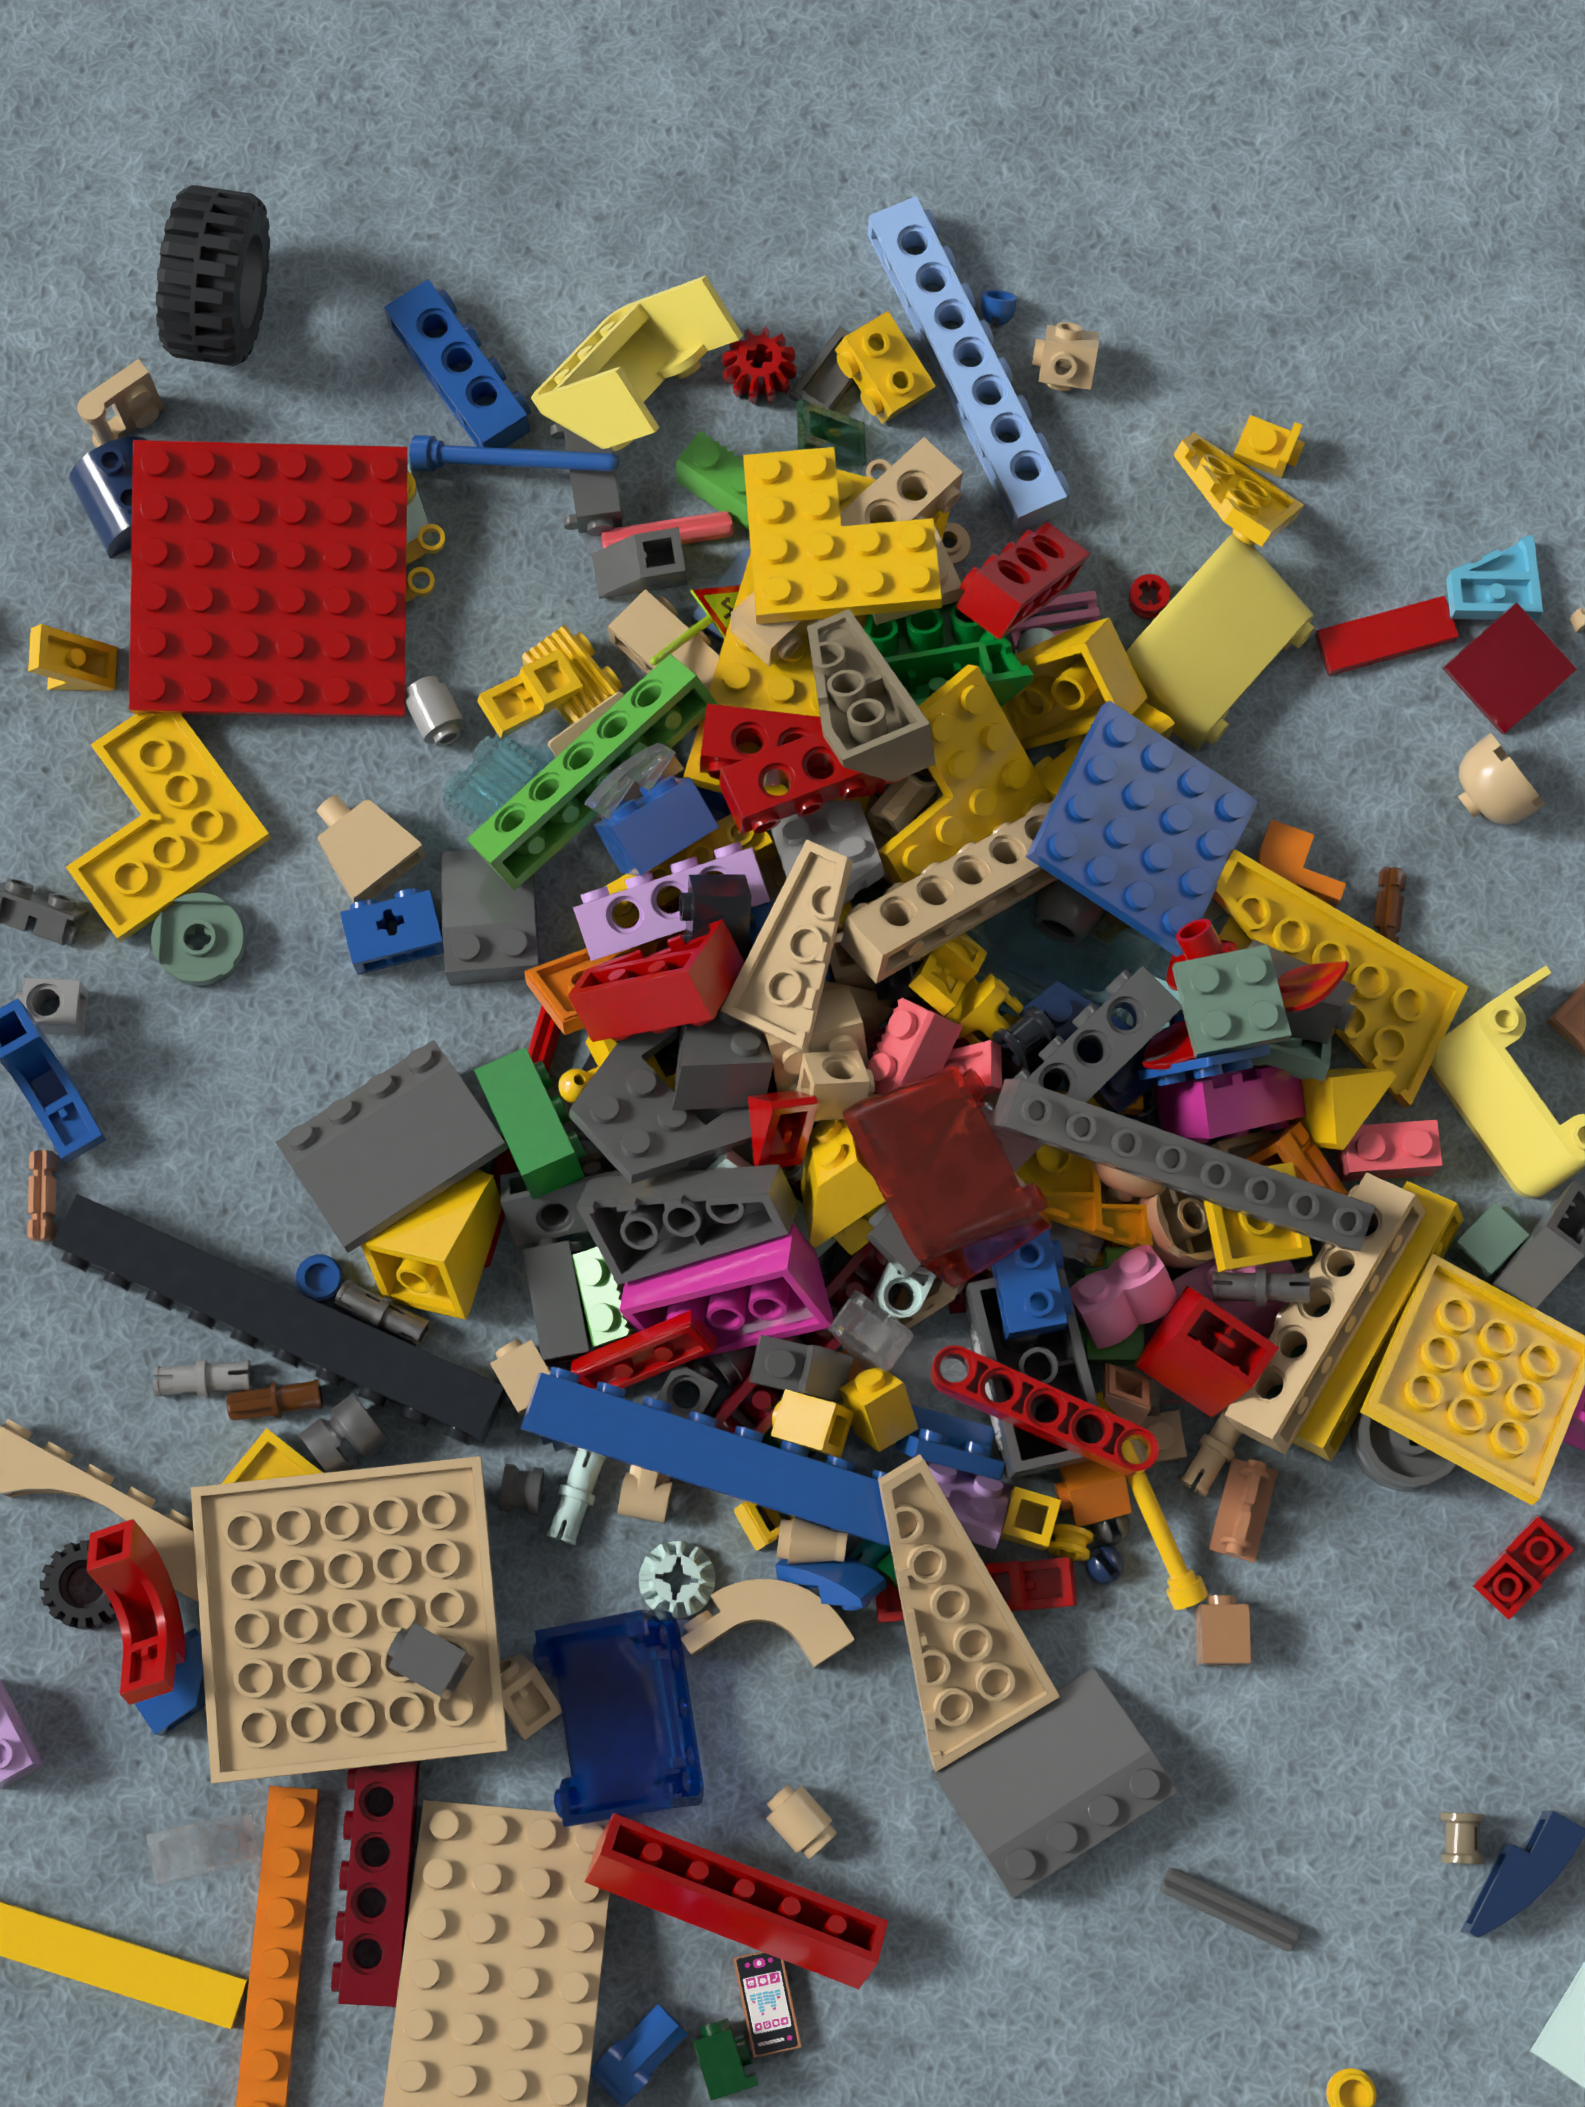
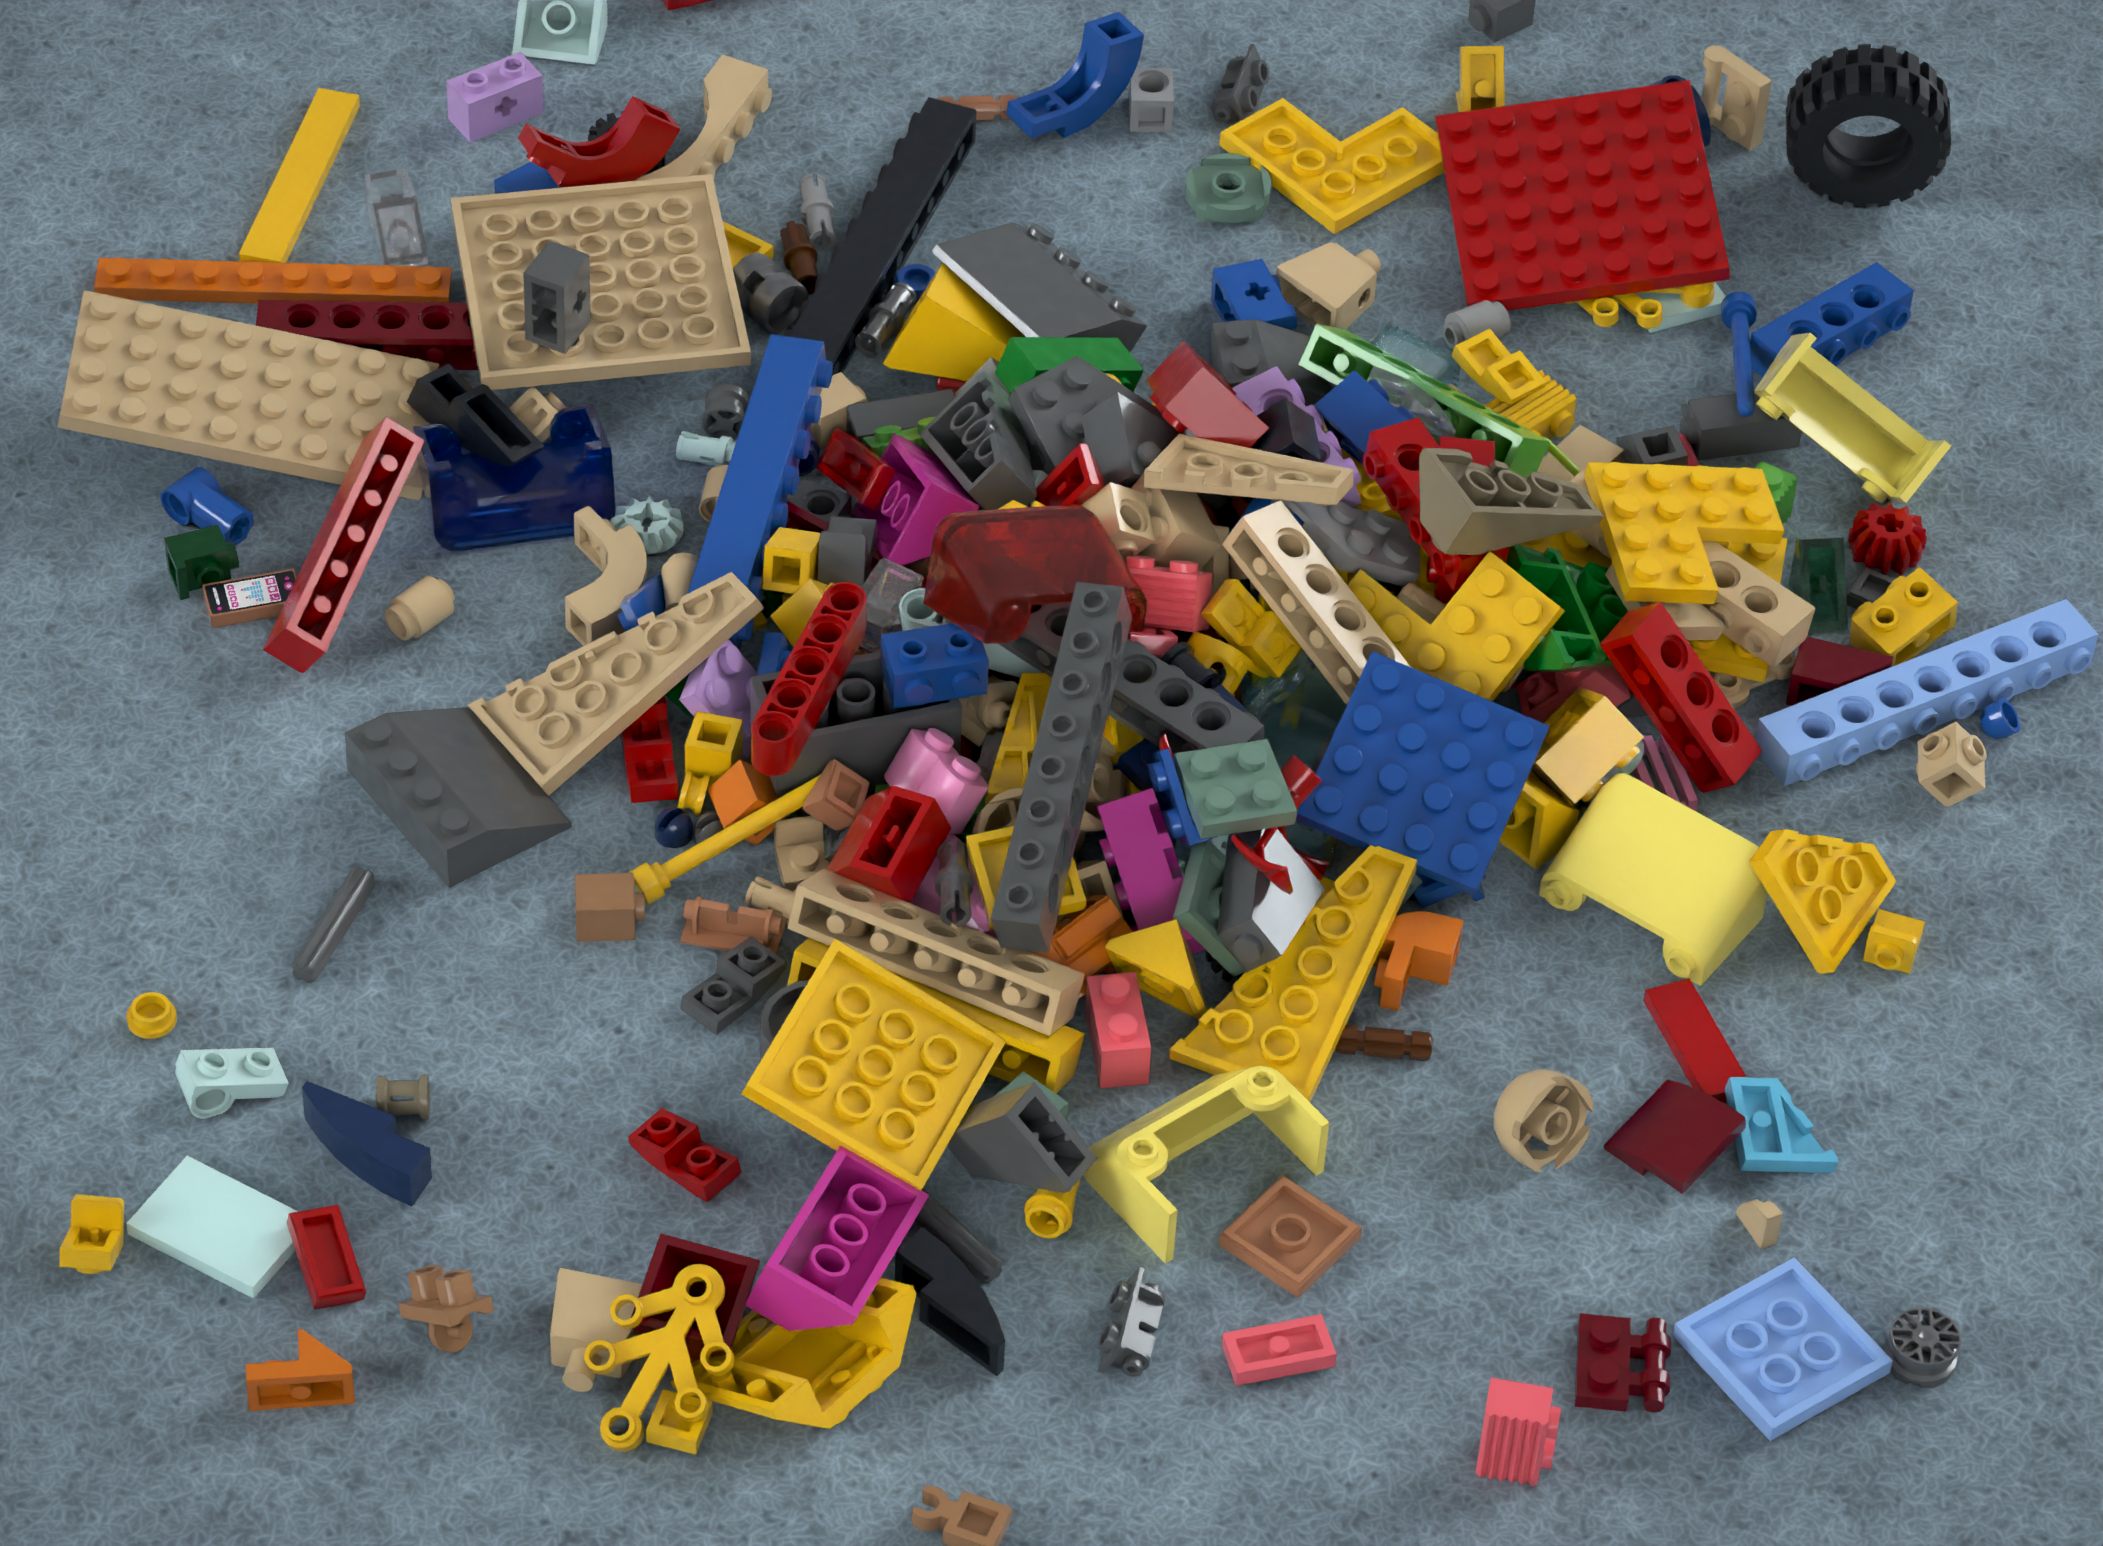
camera: 85 degrees right, 30 degrees down
(537, 1760) = (475, 414): none -> black slope
(946, 429) = (1829, 665): none -> dark red slope
(1314, 1512) = (737, 985): none -> dark grey slope
(1437, 2010) = (218, 1076): none -> light aqua plate

